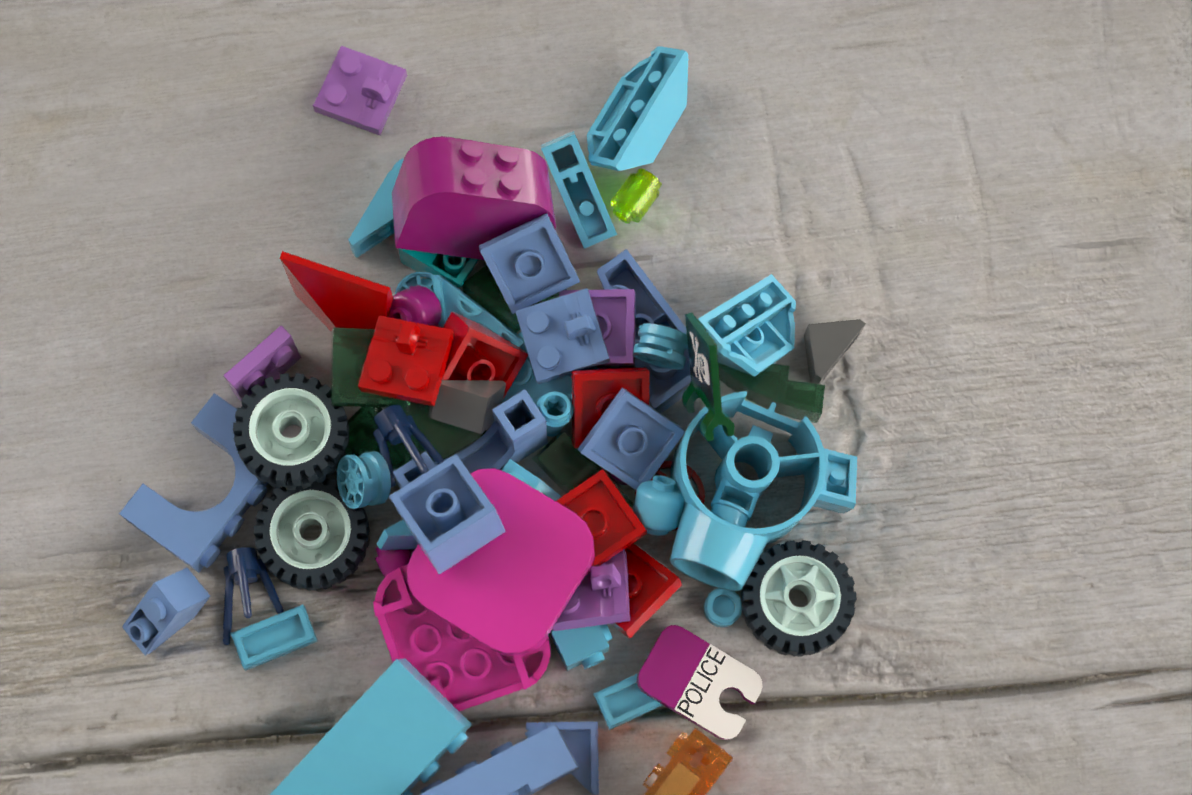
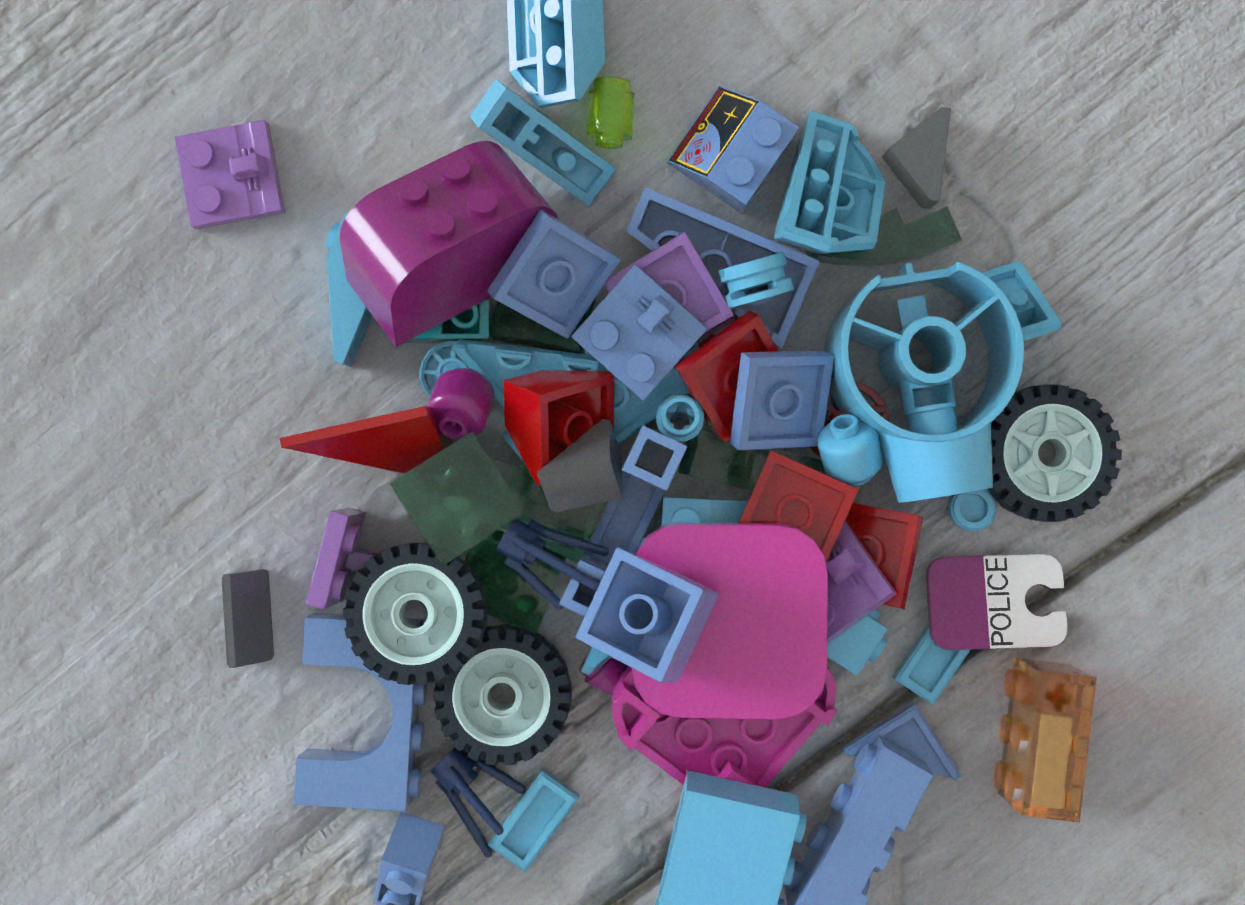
camera: 30 degrees left, 15 degrees up
(174, 374) = (247, 617): none -> dark grey slope
(365, 479) = (527, 616): medium azure wheel -> none
(406, 360) = (493, 471): red hinge -> none
(704, 379) = (832, 290): dark green flag -> none
(705, 268) = (733, 146): none -> medium blue slope

